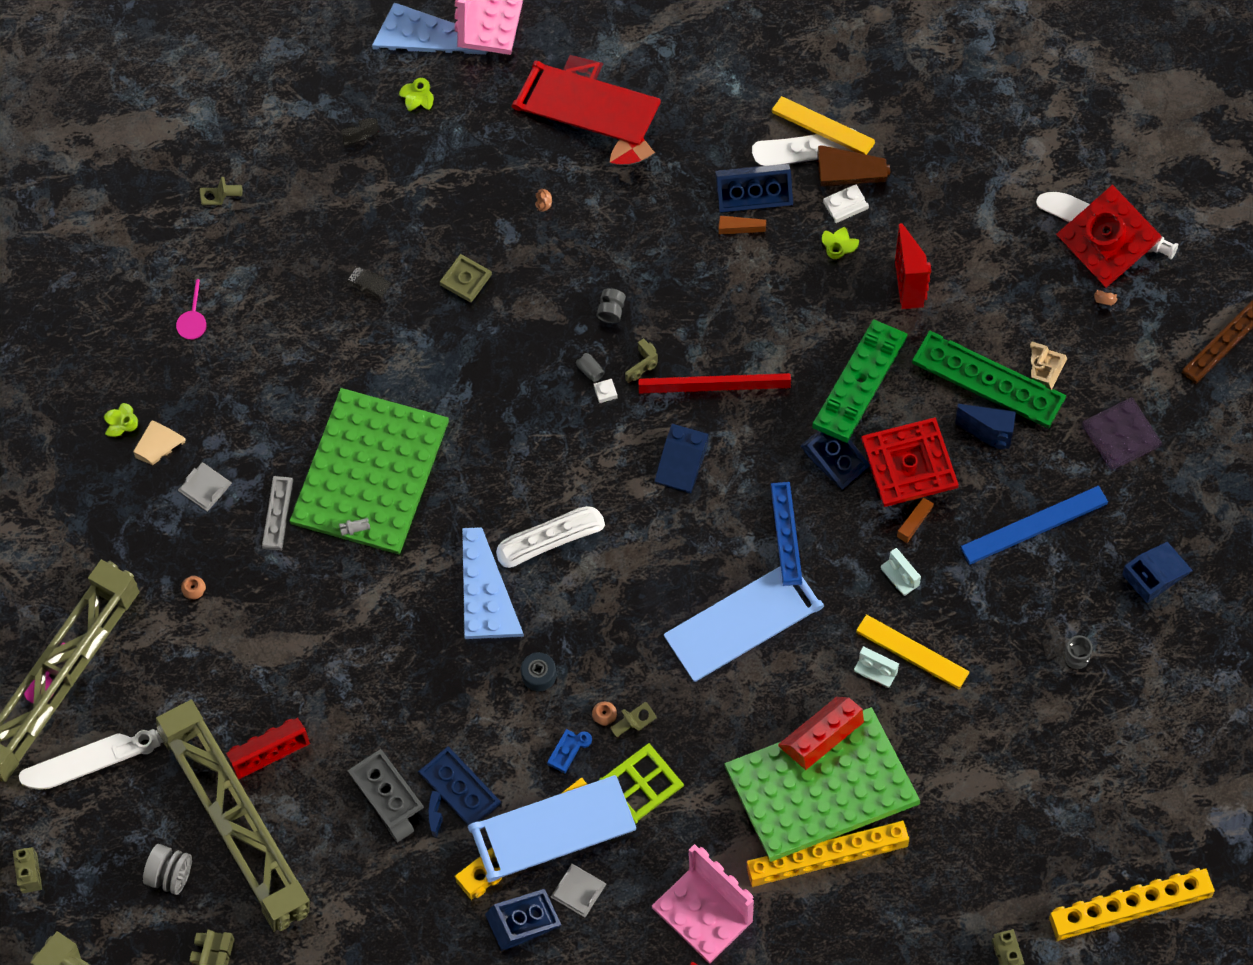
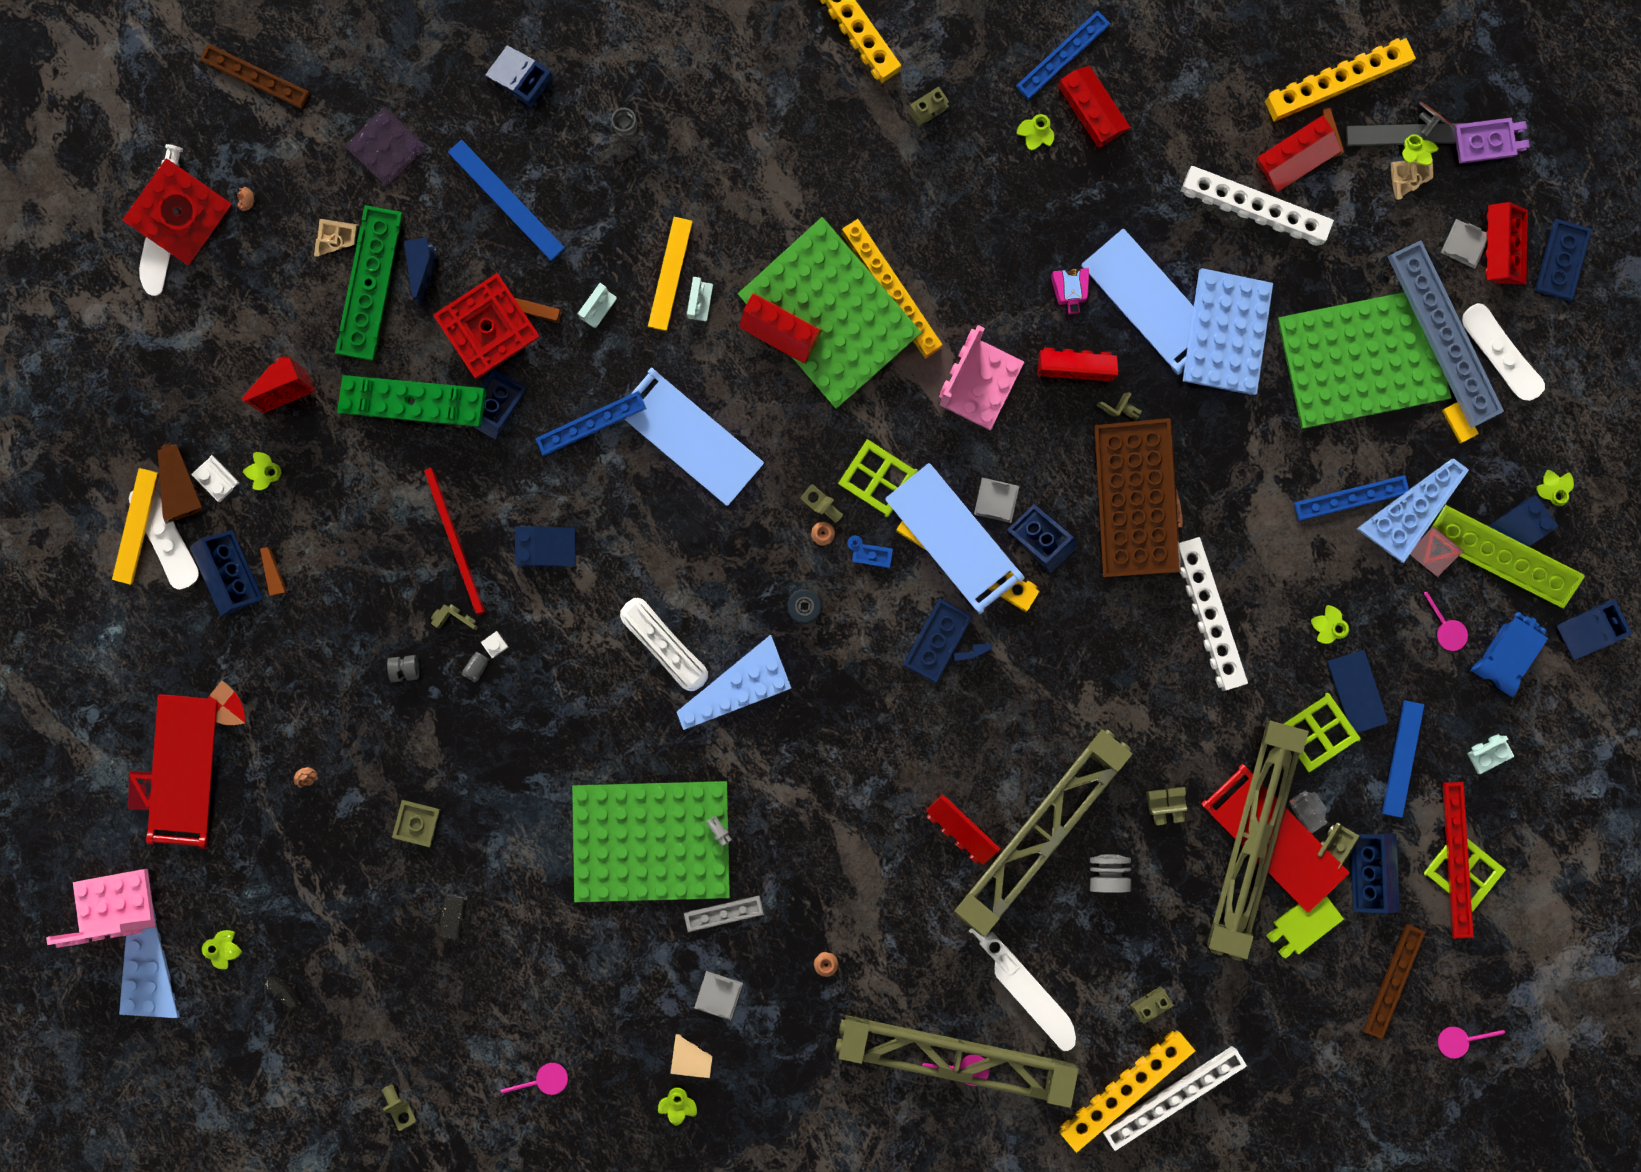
camera: 115 degrees left, 20 degrees up
(393, 806) = (980, 690): dark grey hinge -> none

